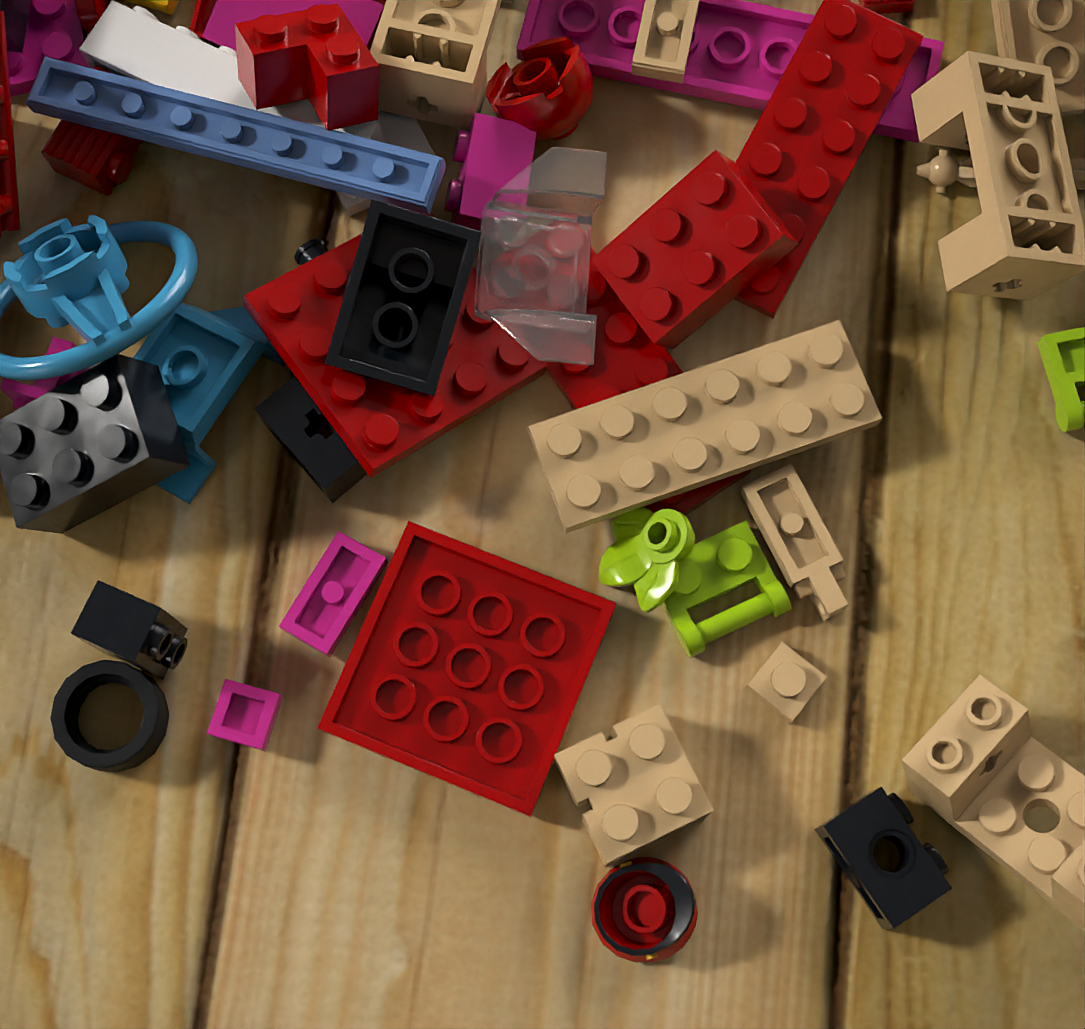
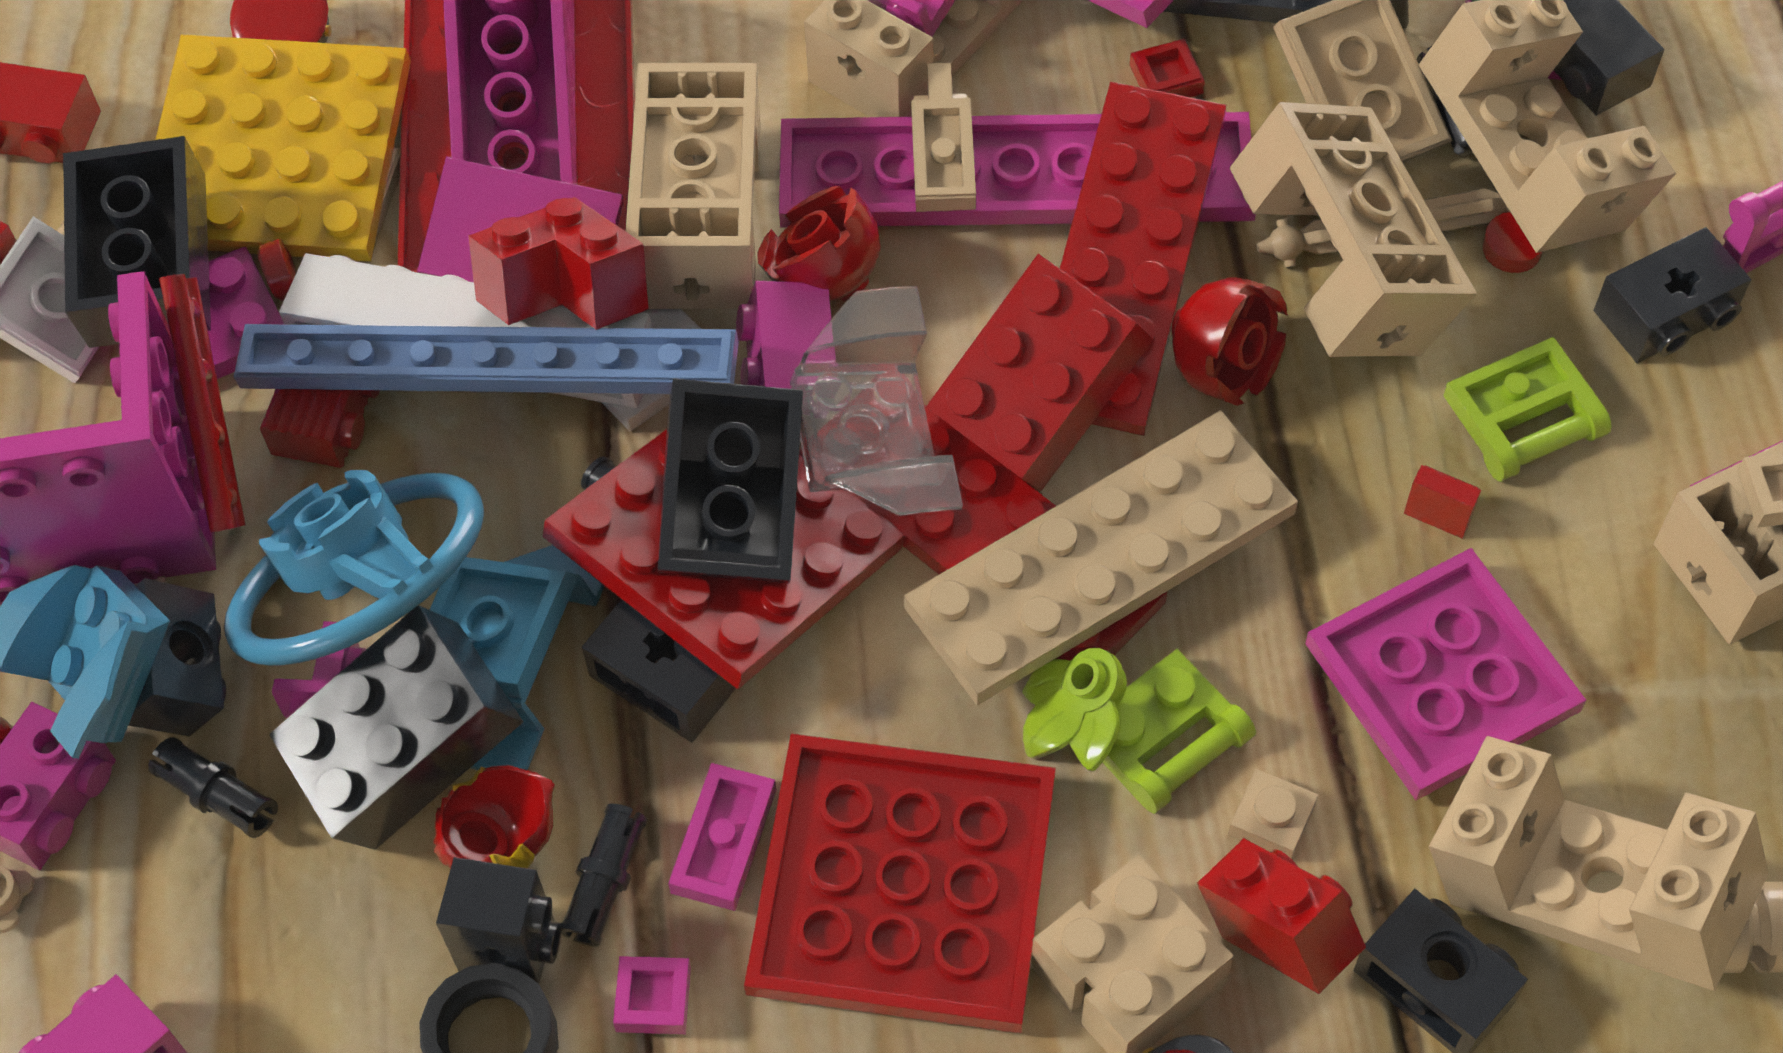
camera: 15 degrees left, 15 degrees down
(152, 542) = (495, 817): none -> red hair
(231, 603) = (603, 875): none -> black pin
(766, 782) = (1283, 914): none -> red brick
(797, 538) = (1242, 656): tan hinge -> none
(866, 252) = (1229, 338): none -> red cylinder
(964, 594) = (1442, 670): none -> dark pink plate
(1007, 441) = (1442, 501): none -> red tile

